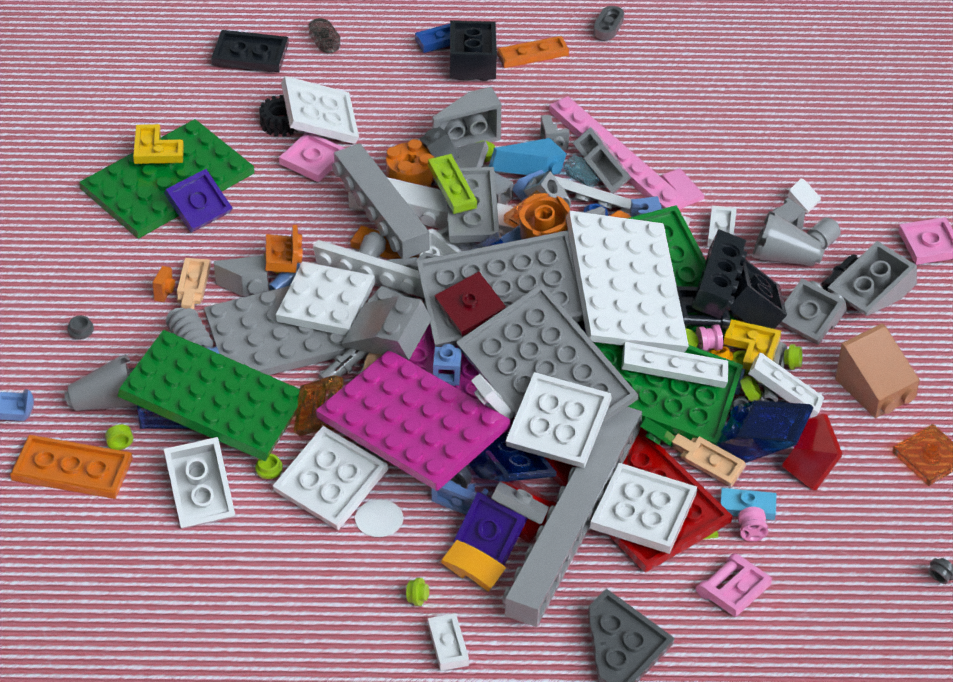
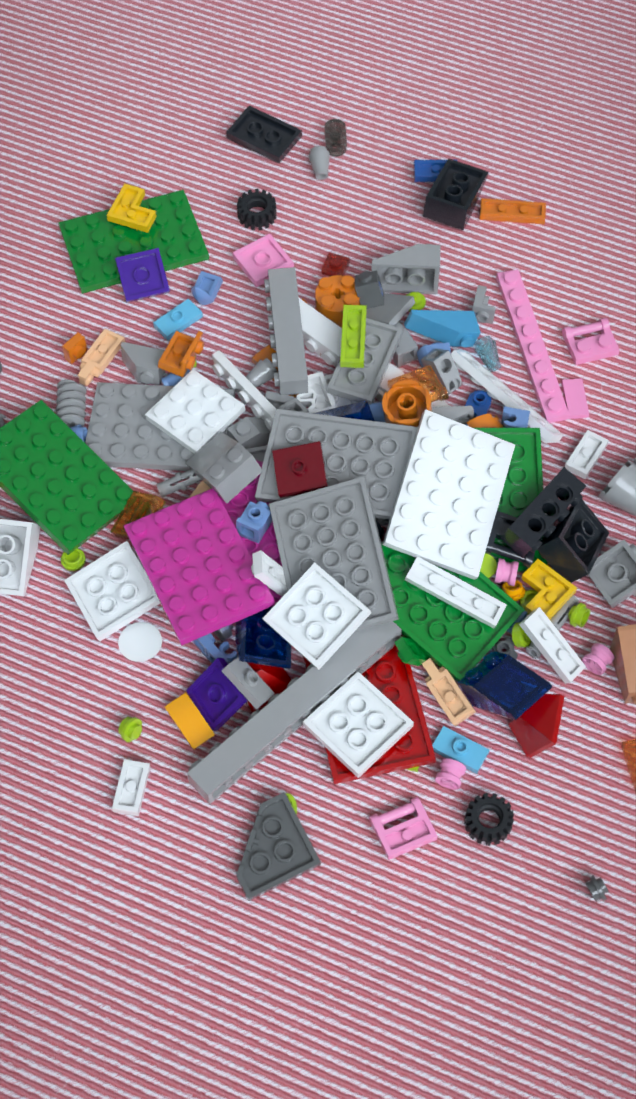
camera: 25 degrees right, 15 degrees up
(254, 231) = (178, 319): none -> medium azure plate
(269, 195) = (206, 288): none -> medium blue plate
(319, 110) = (288, 216): white plate -> none
(320, 58) = (319, 160): none -> light grey cone
(386, 140) = (335, 265): none -> clear red plate
(602, 160) = (511, 348): light grey slope -> none
(608, 23) = (593, 205): flat silver plate -> none
(672, 142) = (592, 347): none -> bright pink plate
(810, 561) = (493, 804): none -> black tyre
(832, 386) = (598, 659): none -> bright pink wheel

